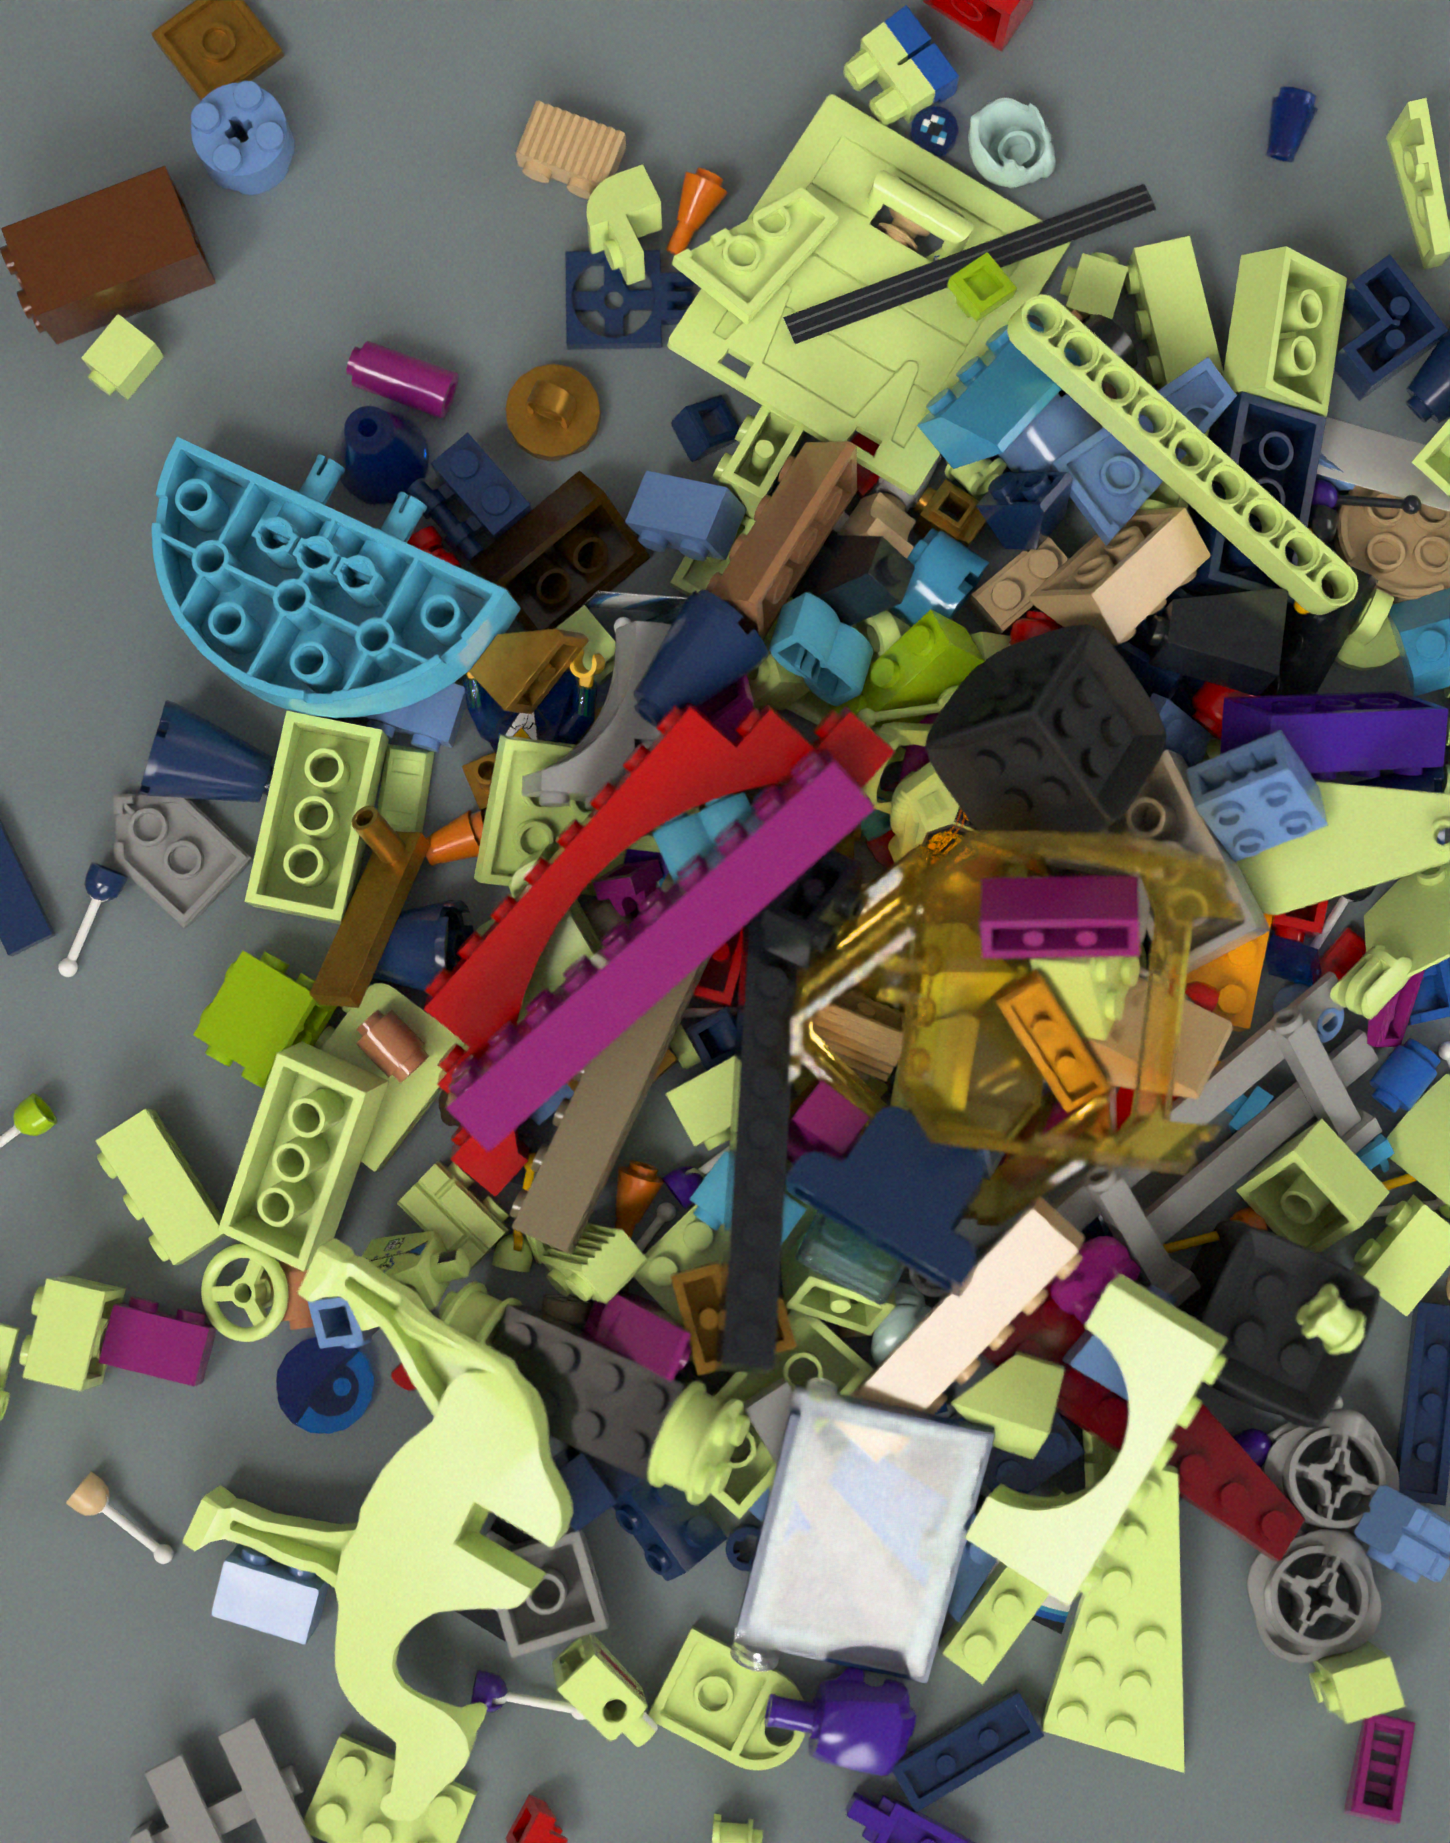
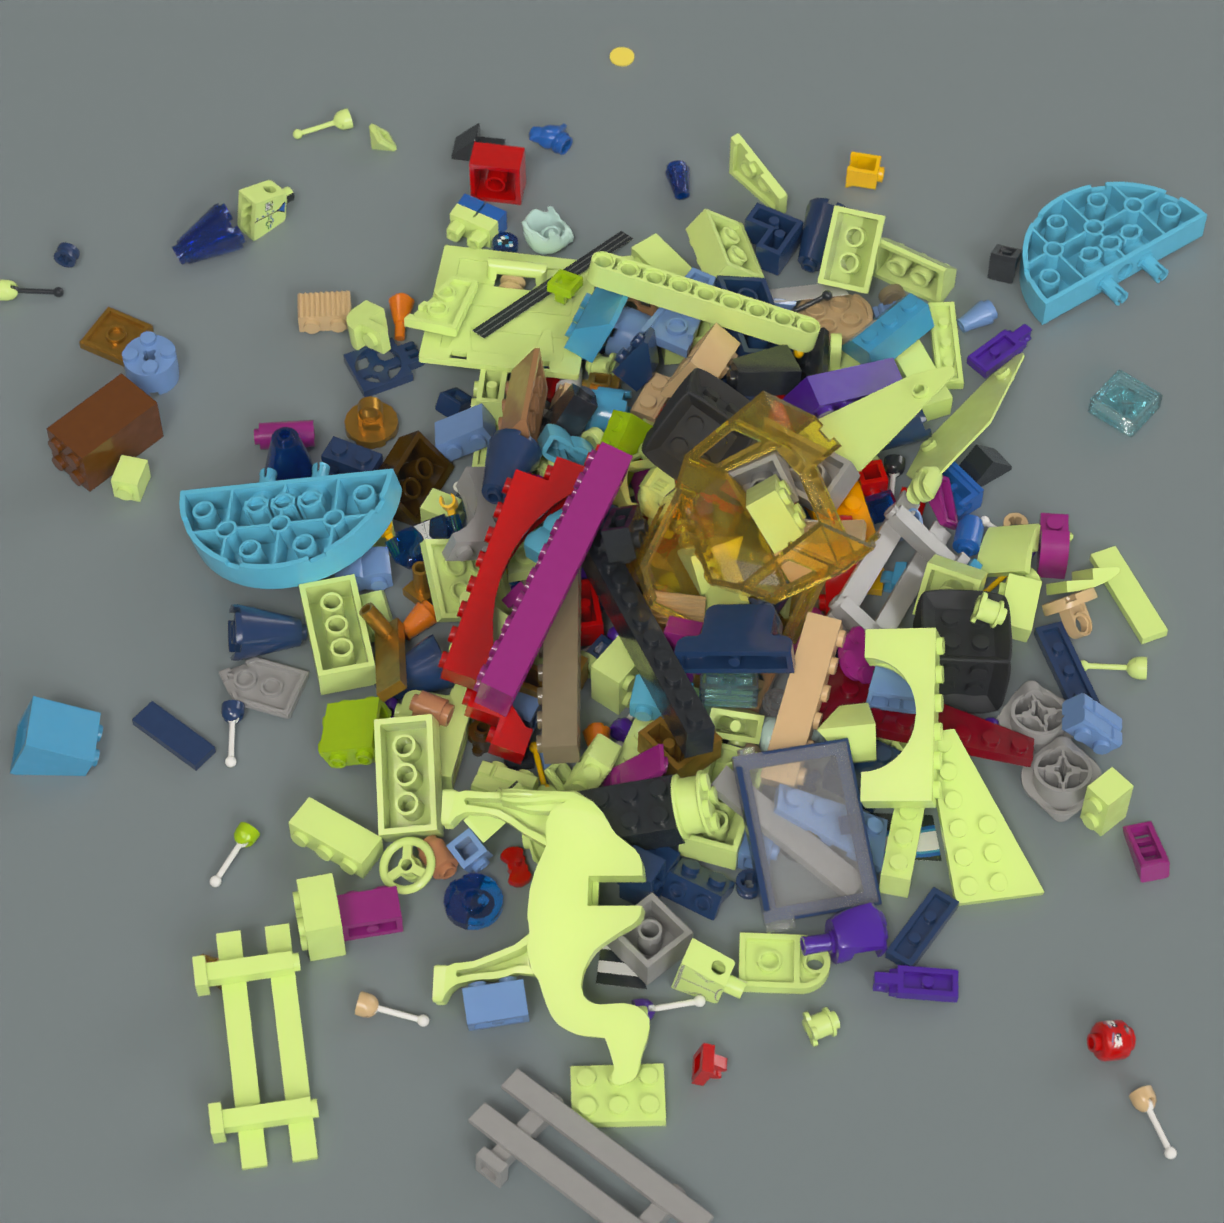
camera: 25 degrees left, 30 degrees down
(526, 665) = (418, 508): pearl gold slope -> none
(633, 602) = (453, 463): sticker -> none
(1051, 1040) = (769, 541): pearl gold tile -> none
(1060, 917) = (750, 479): magenta brick -> none
(1257, 796) = (828, 404): medium blue brick -> none

